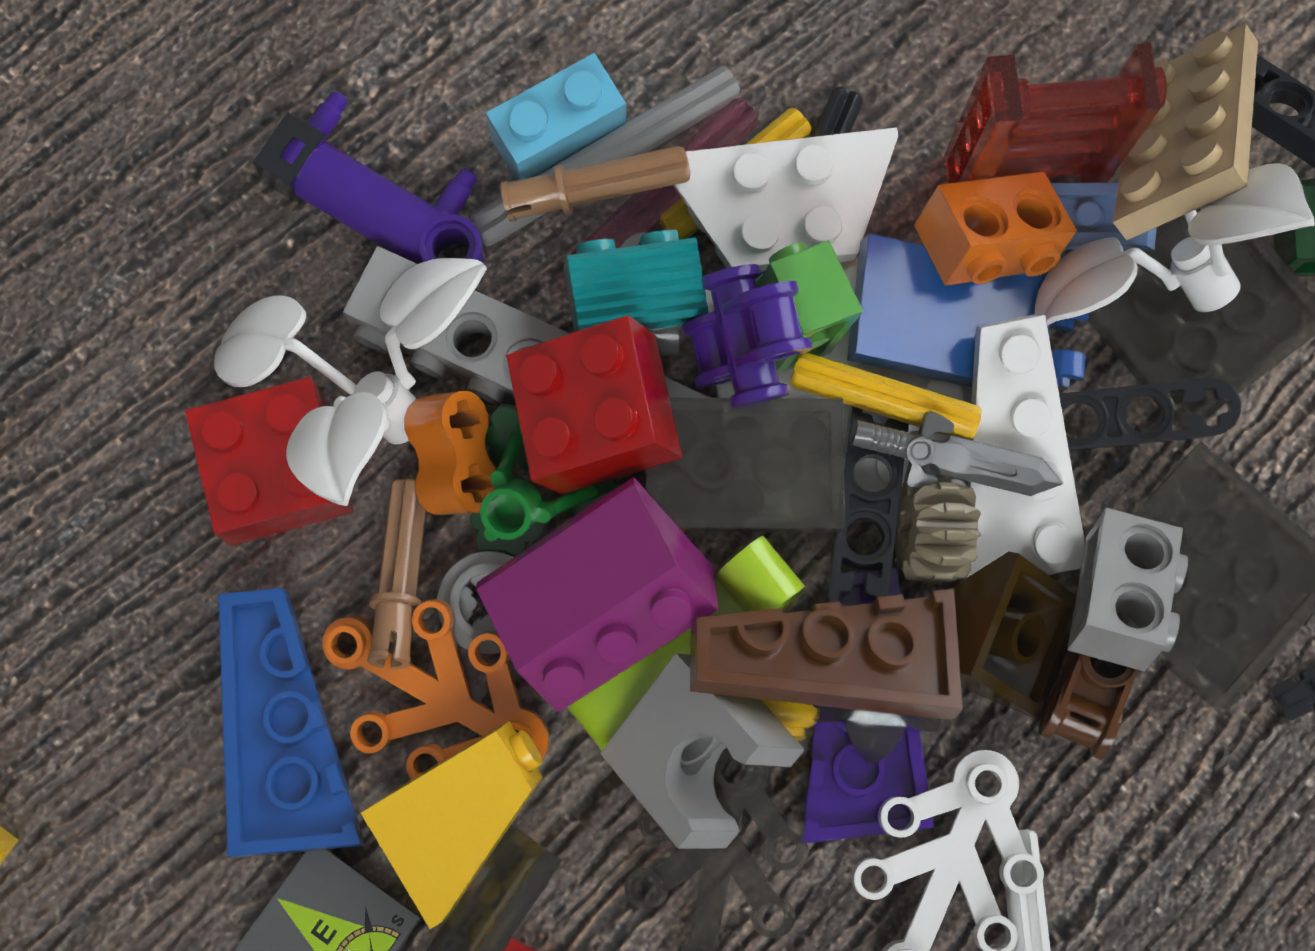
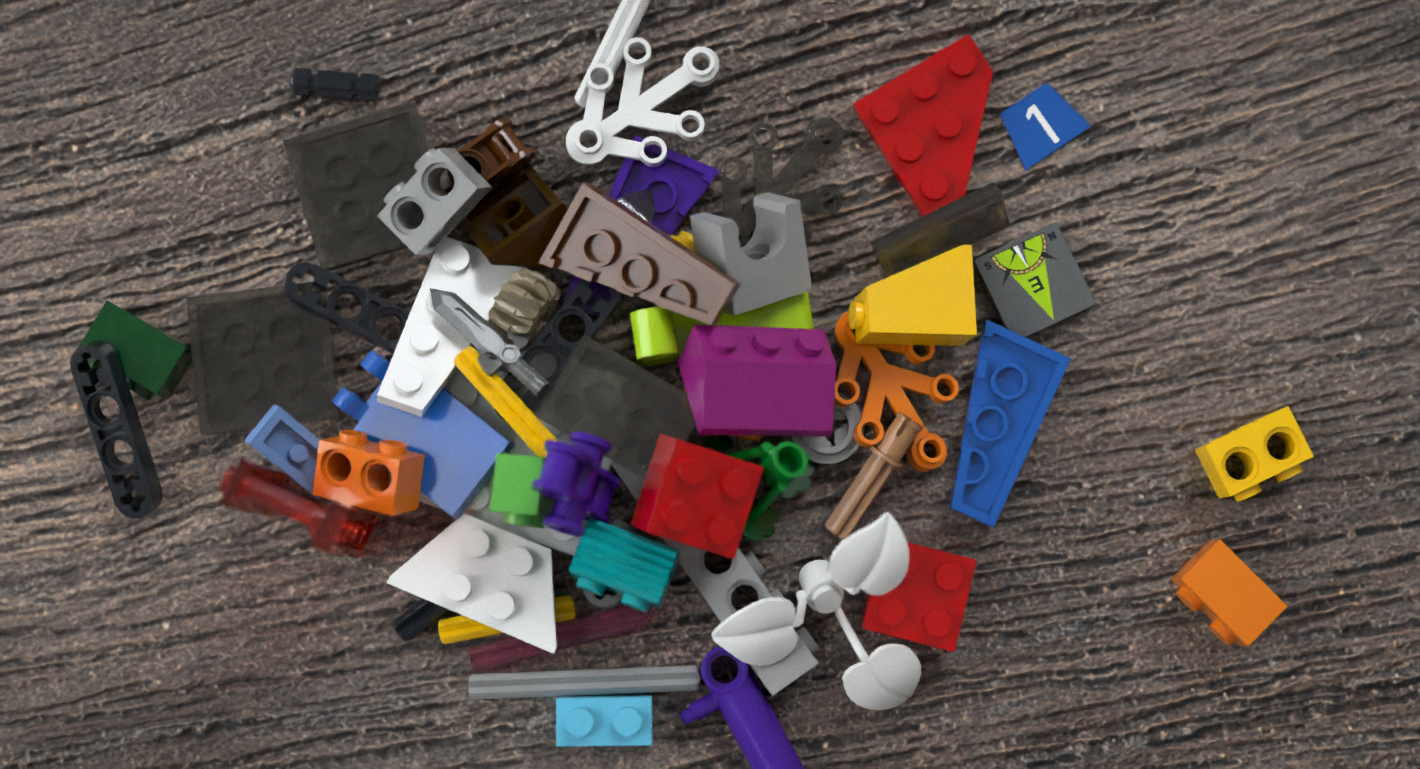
camera: 150 degrees left, 5 degrees up
(451, 451) = (799, 531): orange axle -> none
(594, 182) = (625, 663): medium nougat axle -> none
(1104, 272) = (223, 367): white plant -> none
(1197, 140) = (185, 474): tan plate -> none

